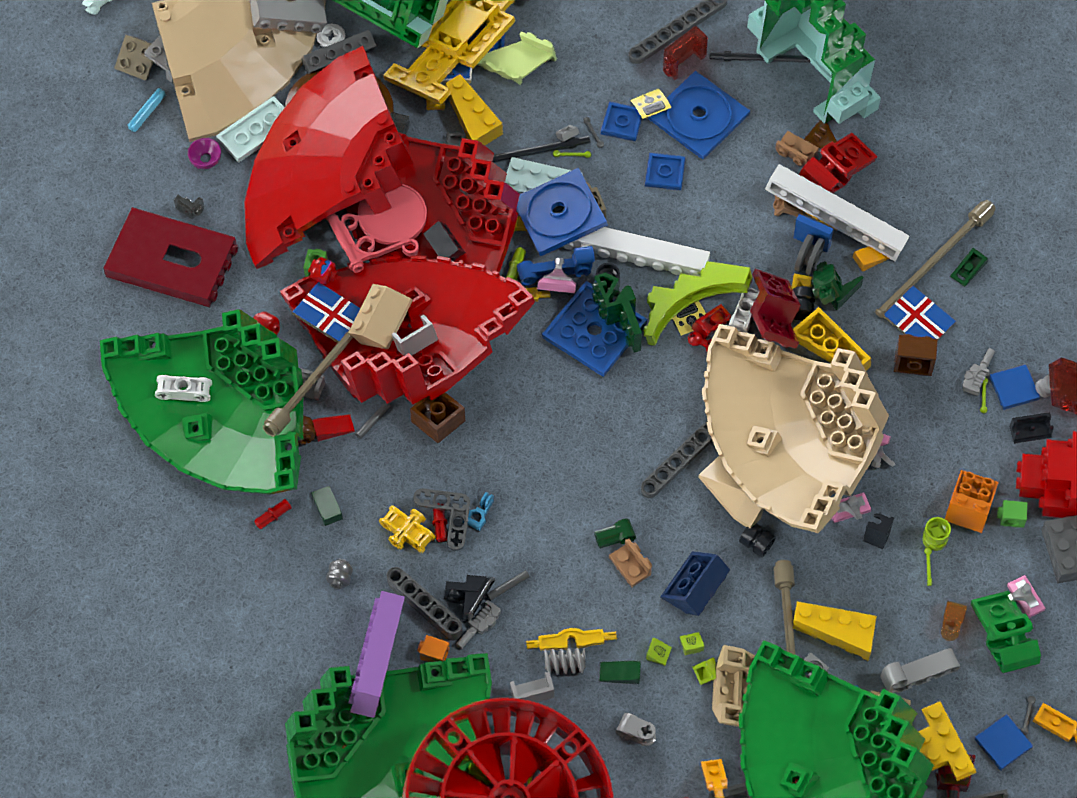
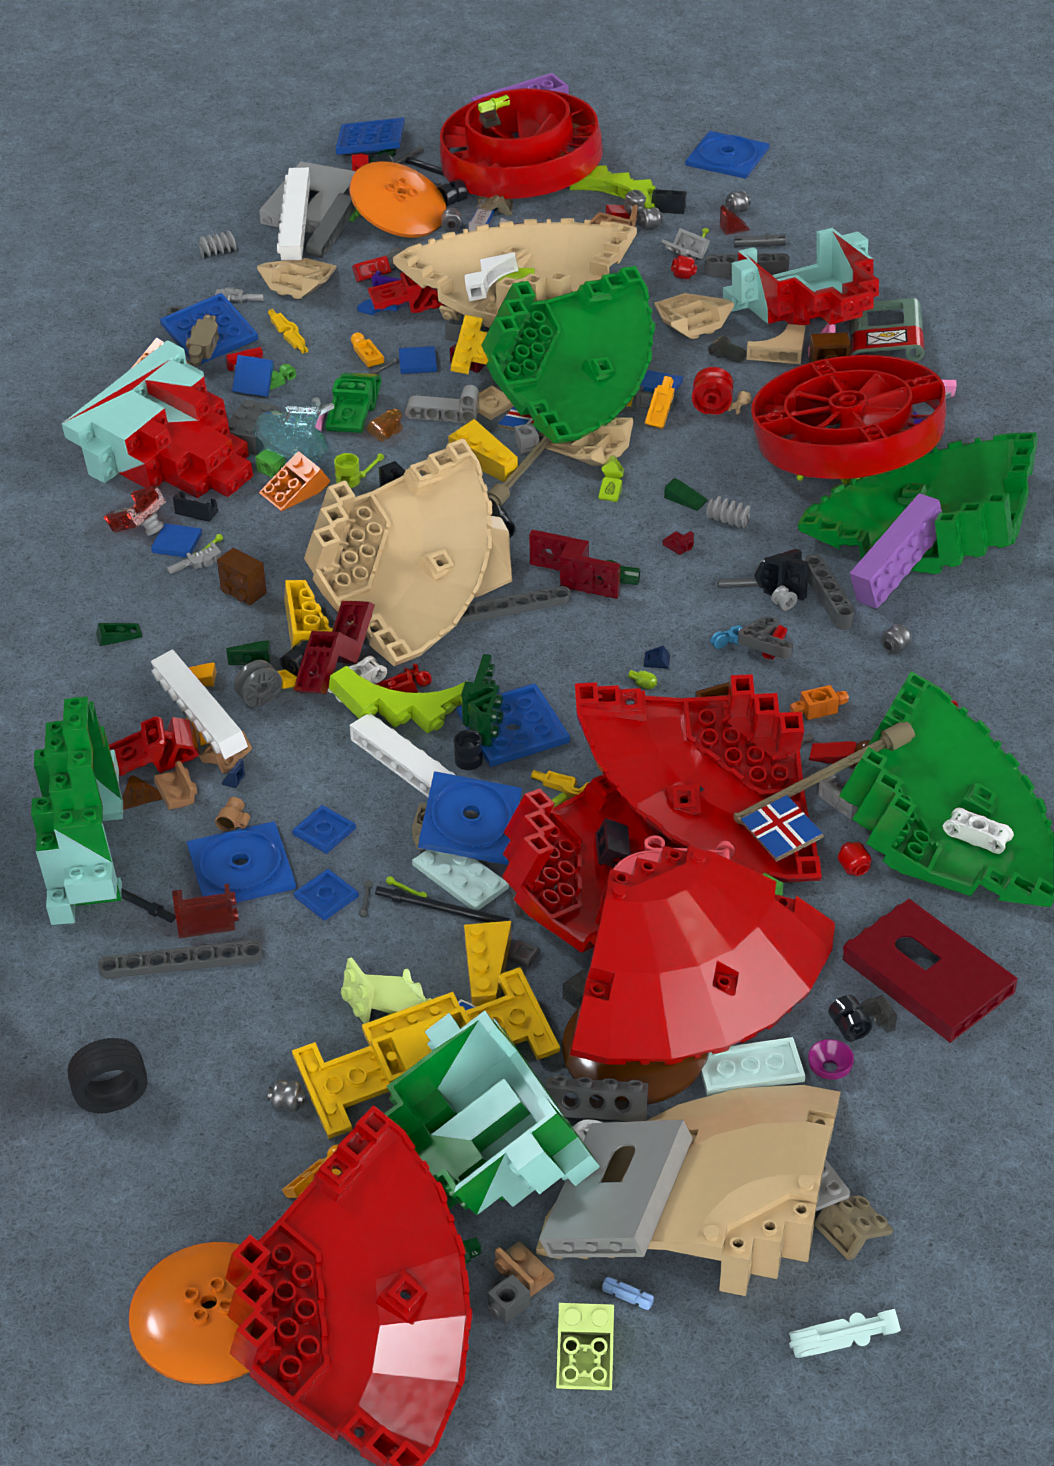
camera: 150 degrees left, 20 degrees down
(146, 110) = (876, 1154): medium azure axle -> none
(205, 188) = (850, 1018): none -> black wheel
(323, 270) = (766, 857): red head -> none
(327, 505) = (877, 694): slope -> none
(367, 477) = (819, 702): none -> orange piece
(380, 316) = (730, 791): tan slope -> none
(407, 529) = (812, 649): yellow axle -> none
(417, 340) = (707, 755): light grey panel -> none
(433, 649) = (840, 559): orange brick -> none
(457, 574) = (784, 598): none -> light grey wheel
(522, 428) = (643, 679): none -> lime cylinder
(527, 458) = (657, 658): none -> dark blue slope
(534, 690) = (771, 505): light grey panel -> none
(557, 280) = (522, 768): bright pink piece -> none
(567, 132) = (396, 902): light grey tile -> none
(578, 264) = (481, 767): blue piece -> none
(581, 637) = (702, 527): yellow piece -> none
(589, 605) = (679, 543): none -> dark red bracket
(631, 563) = (620, 551): medium nougat bracket -> none
(634, 728) = (700, 456): light grey piece -> none
(651, 103) = (281, 894): sticker -> none
(654, 511) = (575, 566): none -> dark red bracket
(658, 652) = (644, 496): lime slope -> none
(696, 582) = (577, 517): dark blue slope -> none
(735, 141) = (232, 816): none -> medium nougat piece
(763, 178) = (235, 775): none -> dark blue slope
(808, 226) = (237, 698): blue tile -> none
(826, 283) = (270, 642): dark green hinge -> none
(911, 309) = (201, 619): flag -> none
(1016, 541) = (292, 432): none -> clear light blue bracket

